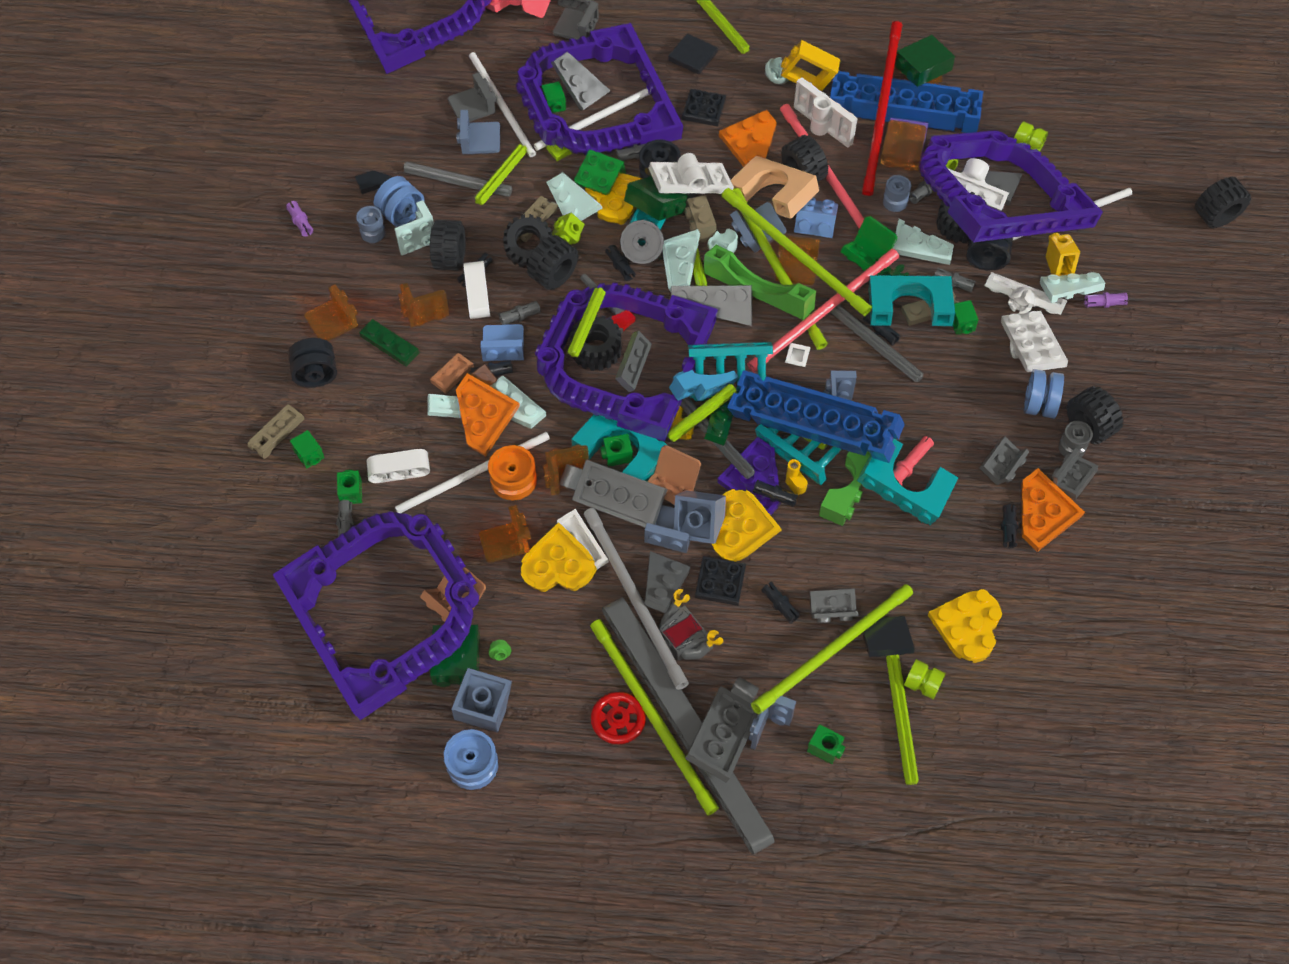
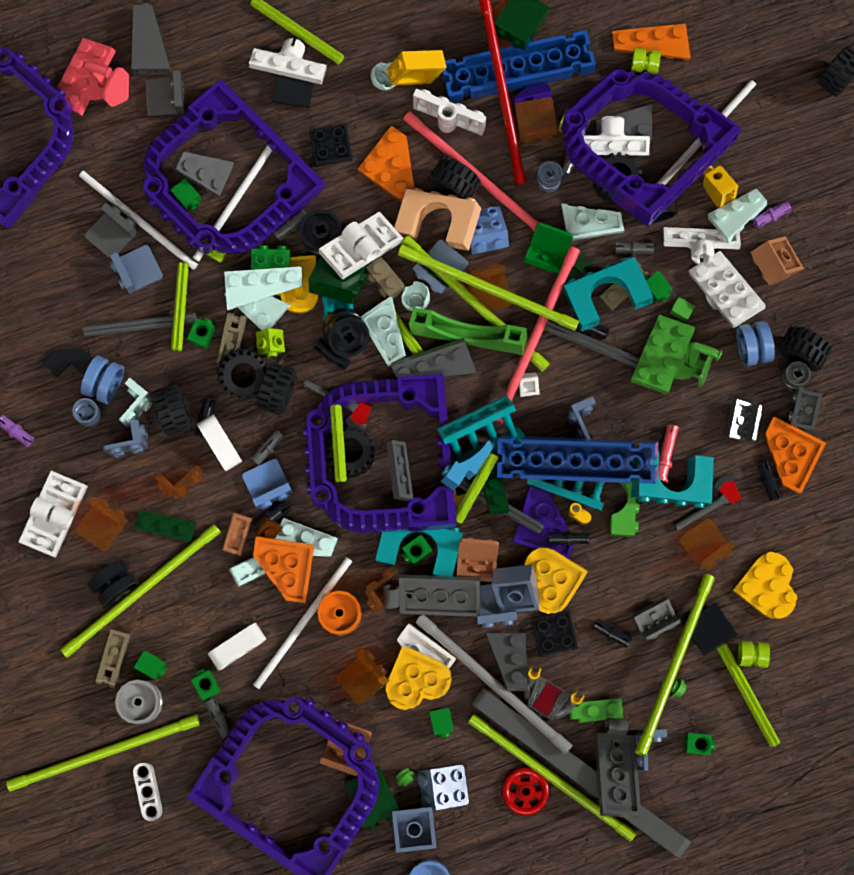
camera: 25 degrees left, 20 degrees up
(129, 502) = (25, 780): none -> lime piece
(241, 567) = (141, 783): none -> white beam
(251, 405) = (75, 643): none -> lime piece
(277, 473) = (128, 696): none -> light grey wheel
(292, 293) = (52, 514): none -> white plate
(394, 261) = (140, 435): none -> sand blue bracket
(509, 203) = (201, 341): none -> green brick
(535, 675) = (443, 787): none -> bracket
(563, 613) = (441, 722): none -> green brick
(582, 177) = (253, 285): none -> light aqua wing
(698, 32) = (288, 62): none -> white plate
(729, 669) = (597, 710): none -> bright green hinge
(827, 680) = (678, 688): none -> bright green plate
(917, 558) = (706, 545): none -> clear orange bracket
(956, 374) = (672, 356): none -> bright green plate
(961, 523) = (729, 494): none -> piece
(980, 347) = (682, 309): none -> bright green slope
(1060, 133) = (669, 39): none -> orange wing
(1095, 337) = (776, 260): none -> nougat slope

